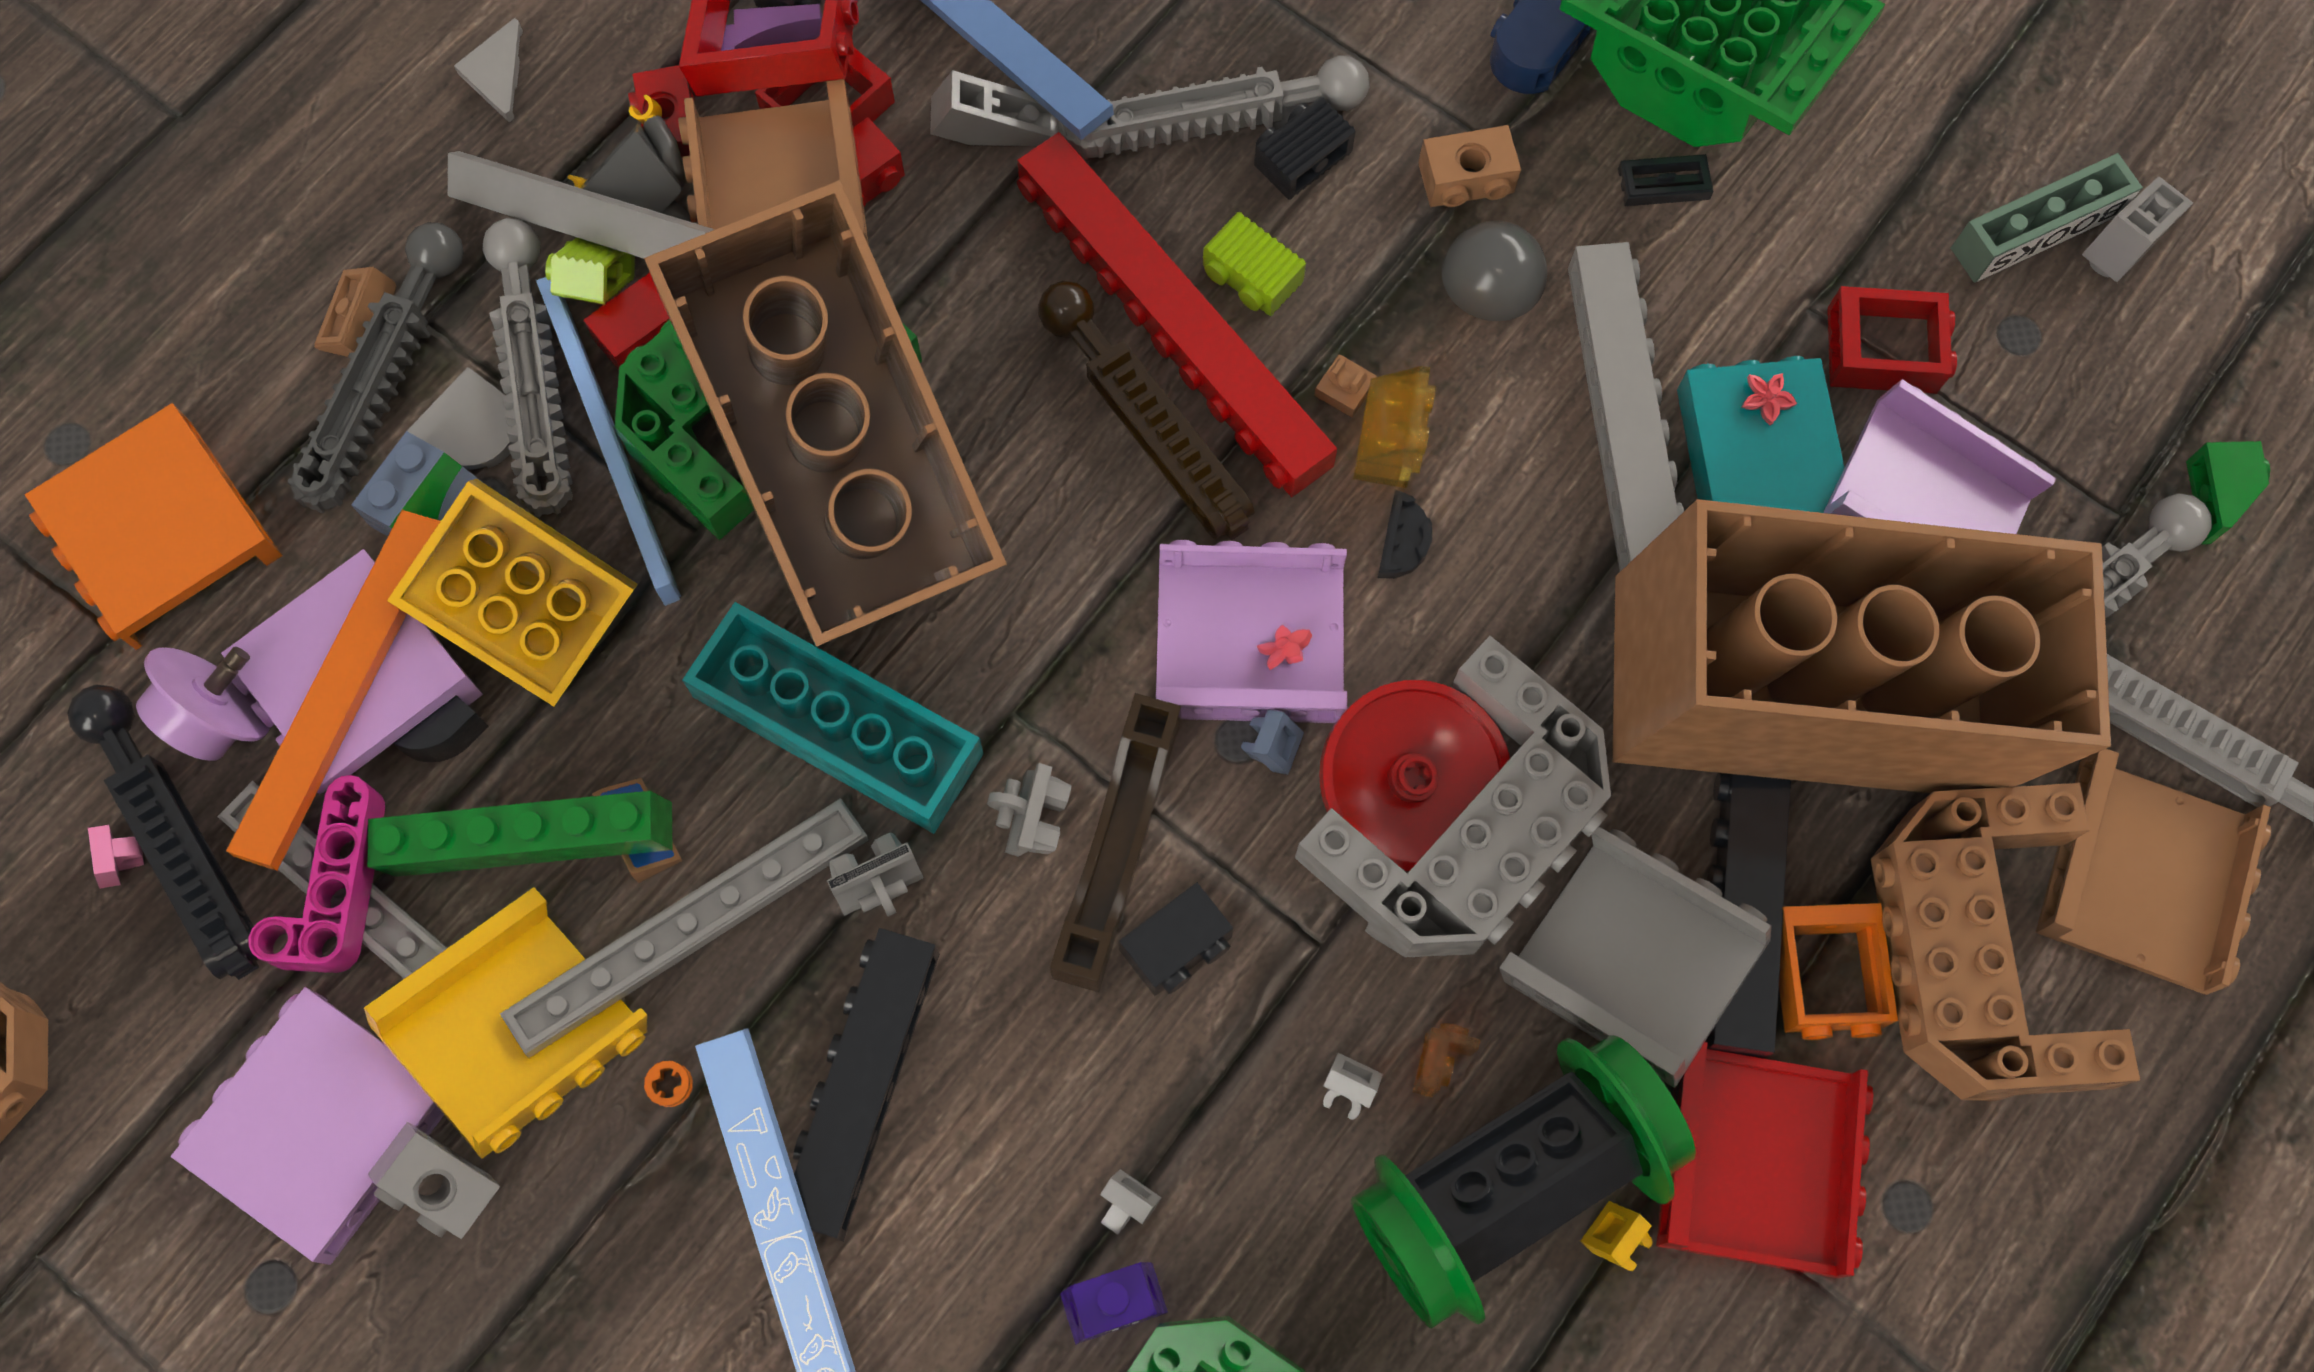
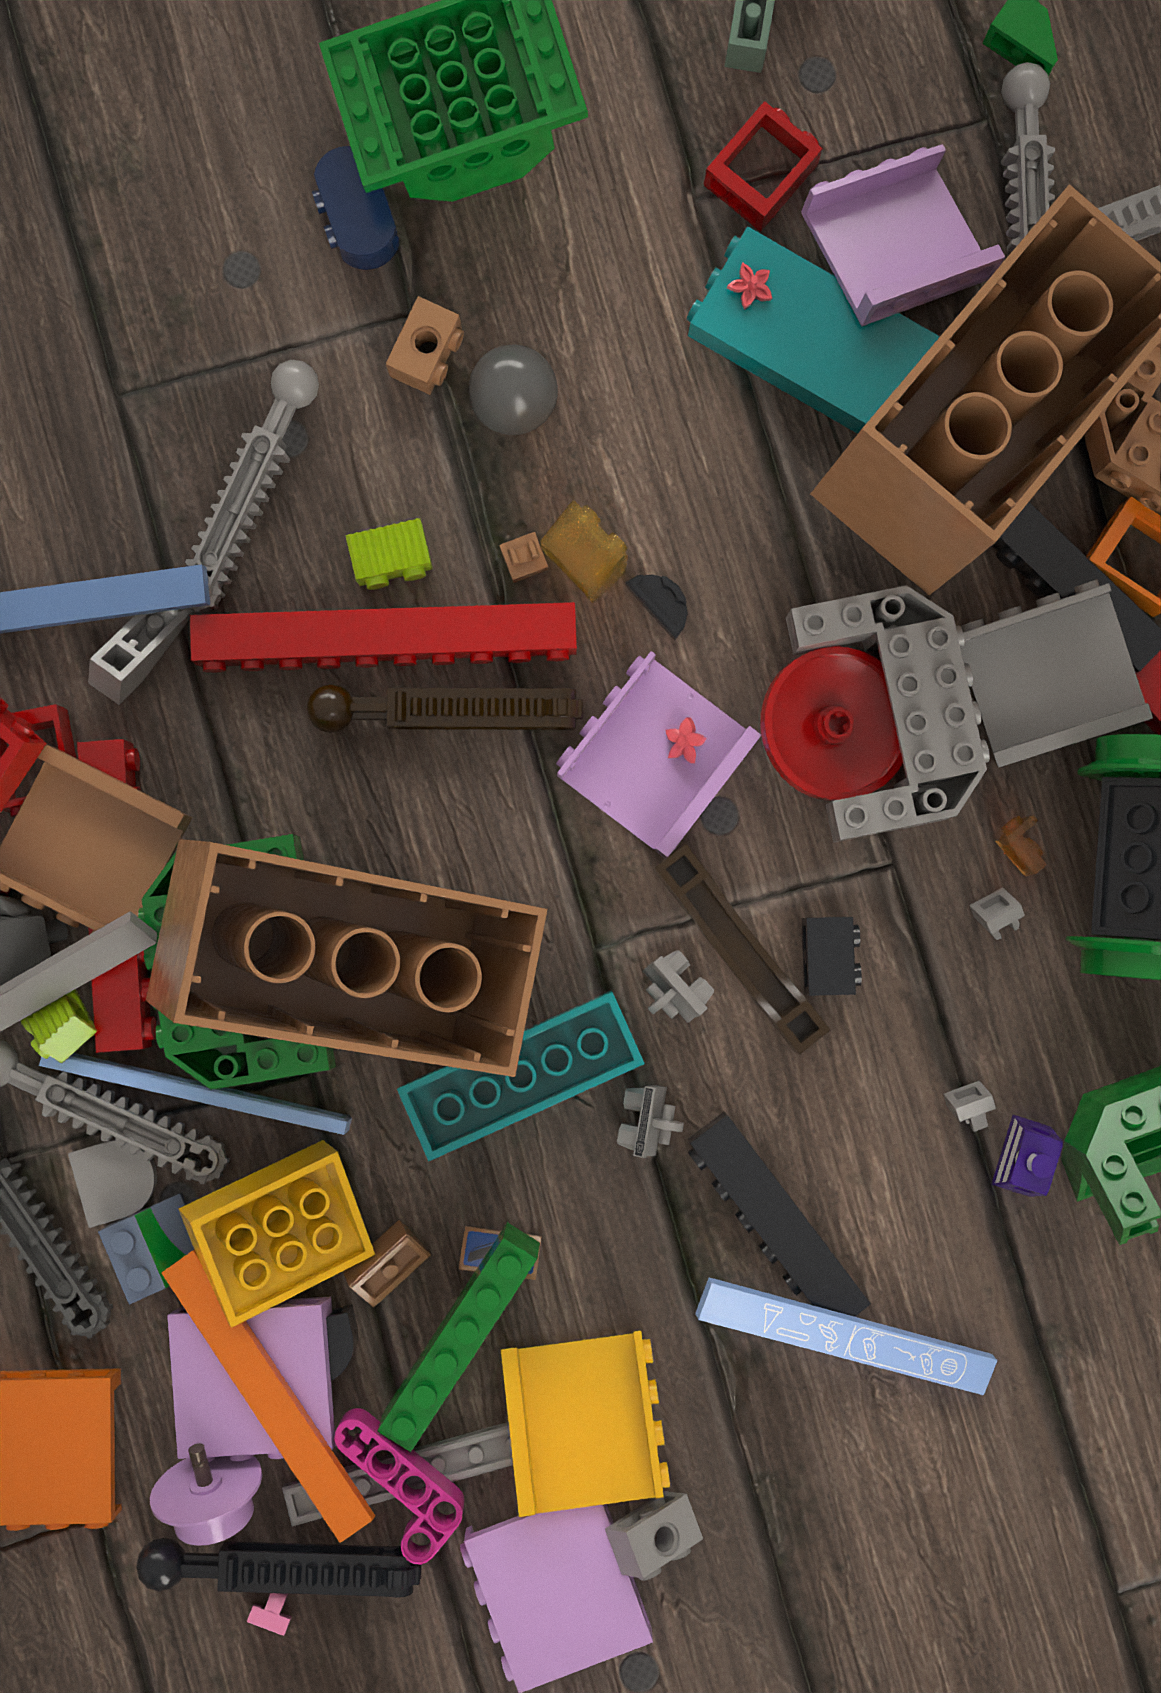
camera: 55 degrees left, 15 degrees up
(551, 731) = (395, 1258): none -> medium nougat slope
(656, 1075) = (677, 1347): orange bush -> none
(682, 928) = (594, 1266): light grey tile -> none
(1276, 741) = (744, 794): sand blue tile -> none
(1303, 147) = (323, 449): black brick -> none
(1624, 396) = (686, 385): light grey brick -> none
(1667, 186) = (515, 244): black tile -> none

